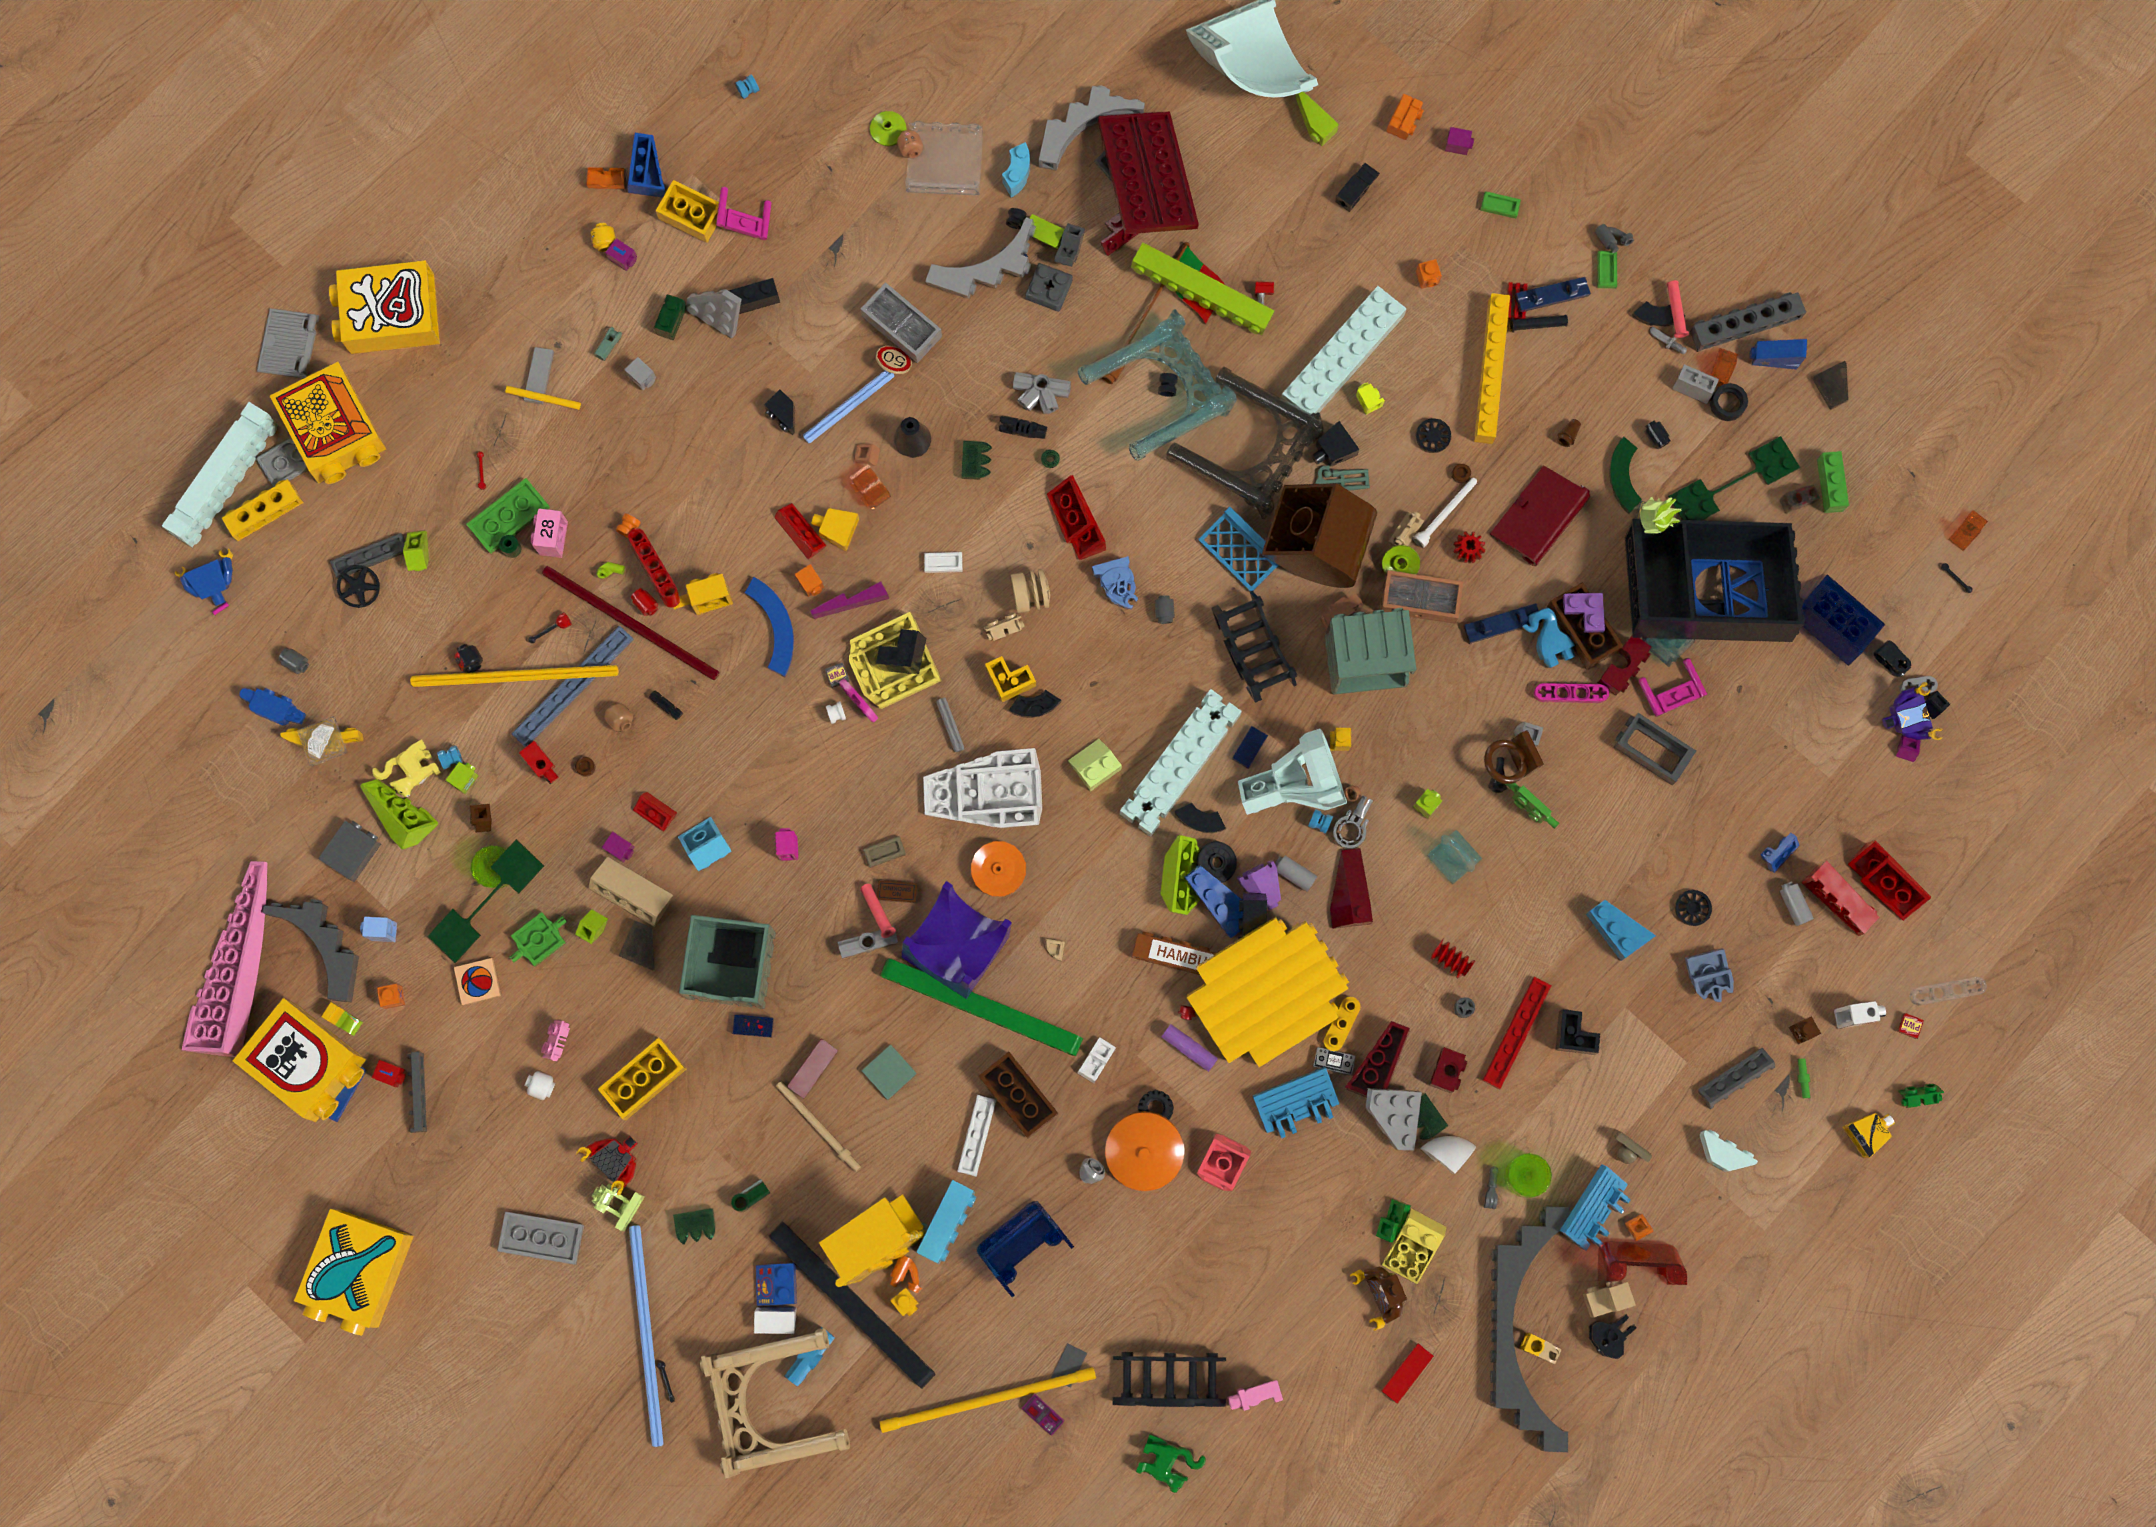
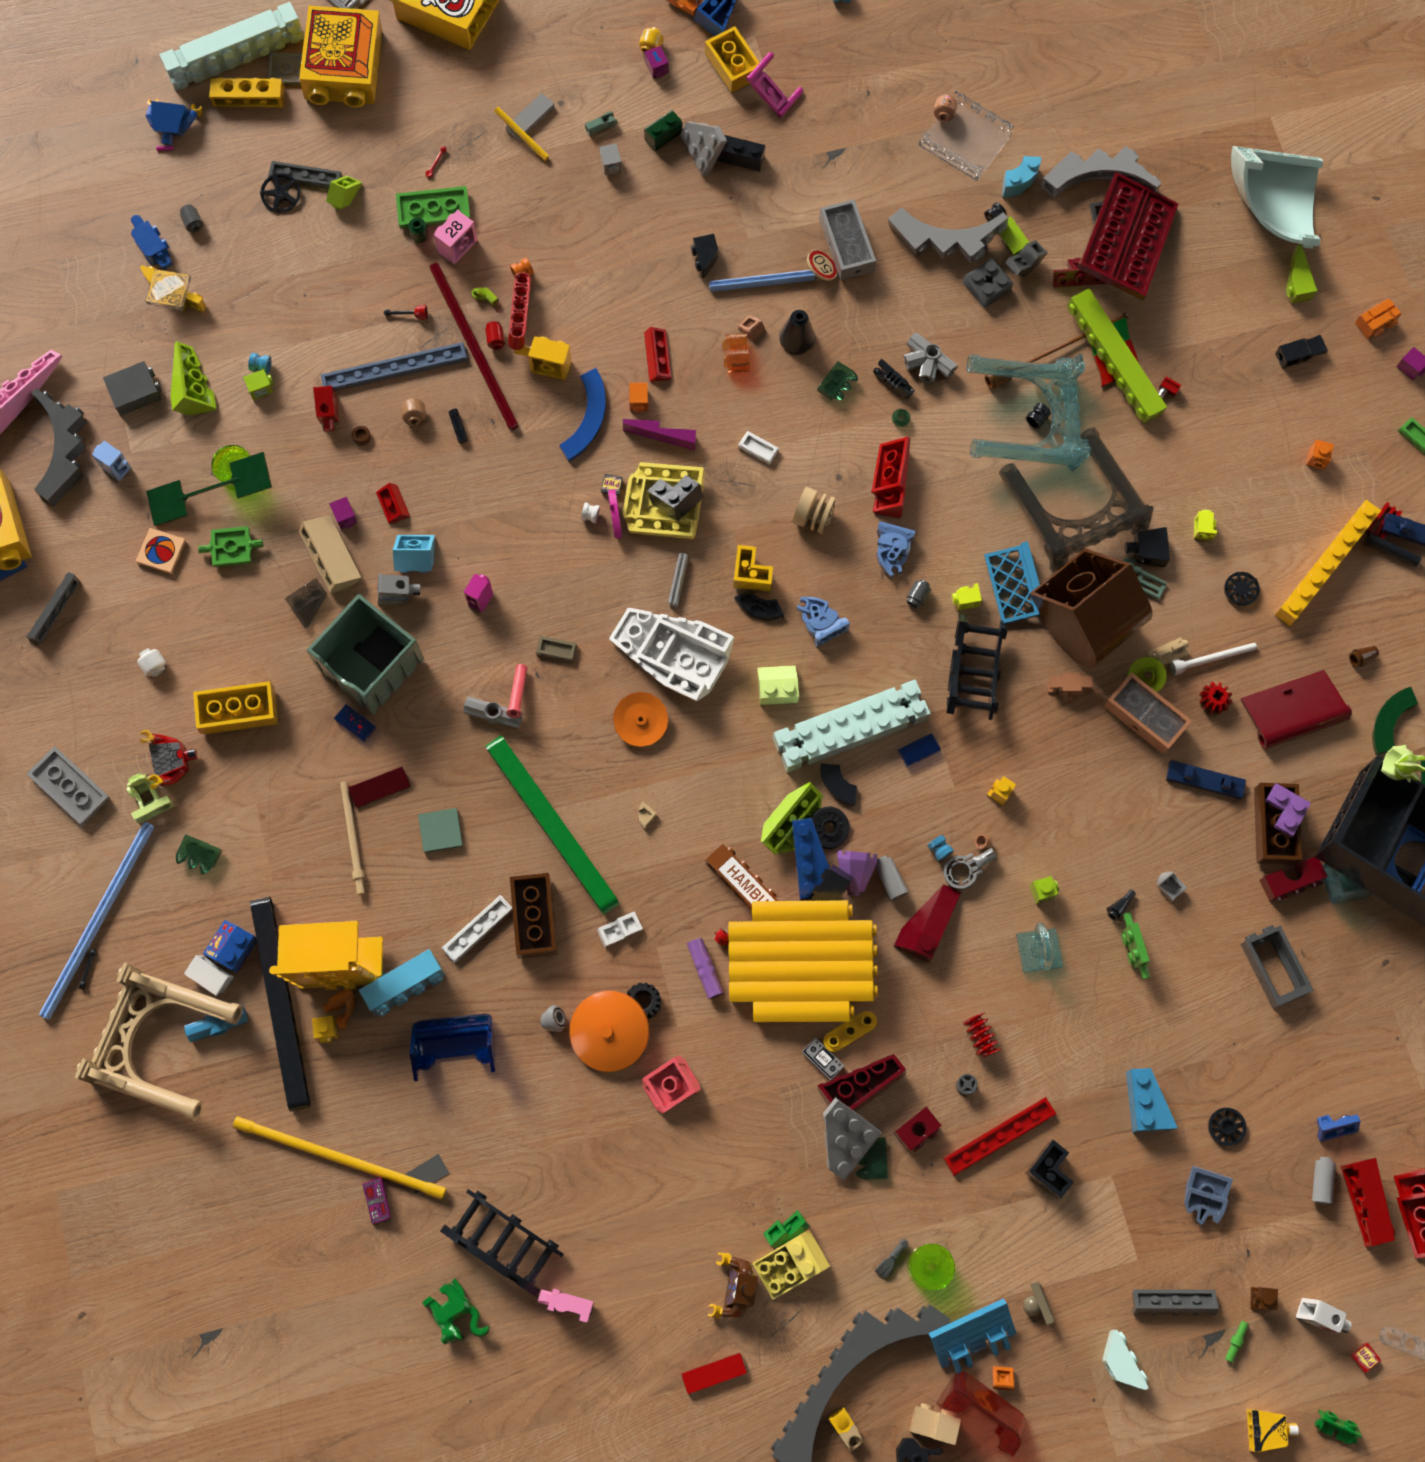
camera: 30 degrees right, 5 degrees down
(342, 1018) = (35, 513): leg -> none
(389, 1074) = (41, 579): red brick -> none
(391, 996) = (84, 519): orange brick -> none
(410, 763) = (225, 350): light yellow animal -> none
(468, 658) = (327, 296): black head -> none
(481, 817) = (250, 423): reddish brown brick -> none
(514, 675) = (354, 331): yellow axle -> none
(555, 1030) = (200, 631): bright pink hinge -> none
(591, 926) = (278, 561): lime brick -> none
(706, 893) = (395, 589): none -> light grey torso
(752, 1195) = (259, 859): dark green piece -> none
(836, 527) = (689, 368): yellow torso -> none
(883, 135) = (930, 92): lime dish -> none
(897, 891) = (545, 687): reddish brown tile -> none
(955, 943) = (564, 756): dark purple piece -> none
(1010, 622) = (767, 526): tan hinge -> none
(1099, 684) = (823, 621): none -> medium blue piece
(1207, 587) = (967, 597): none -> neon yellow brick
(1288, 779) = (934, 795): light aqua plate -> none
(1295, 1098) = (768, 1069): dark azure hinge -> none
(1345, 352) = (1208, 475): light aqua brick -> none
(1370, 651) = (1073, 728): sand green piece -> none
(1449, 1151) = (874, 1201): white brick -> none
(1461, 473) = (1246, 634): reddish brown tile -> none
(1523, 755) = (1154, 898): reddish brown tile -> none
(1551, 639) = (1240, 817): dark azure hips -> none
(1571, 693) = (1228, 878): dark pink beam -> none
(1676, 696) = (1322, 933): dark pink plate -> none

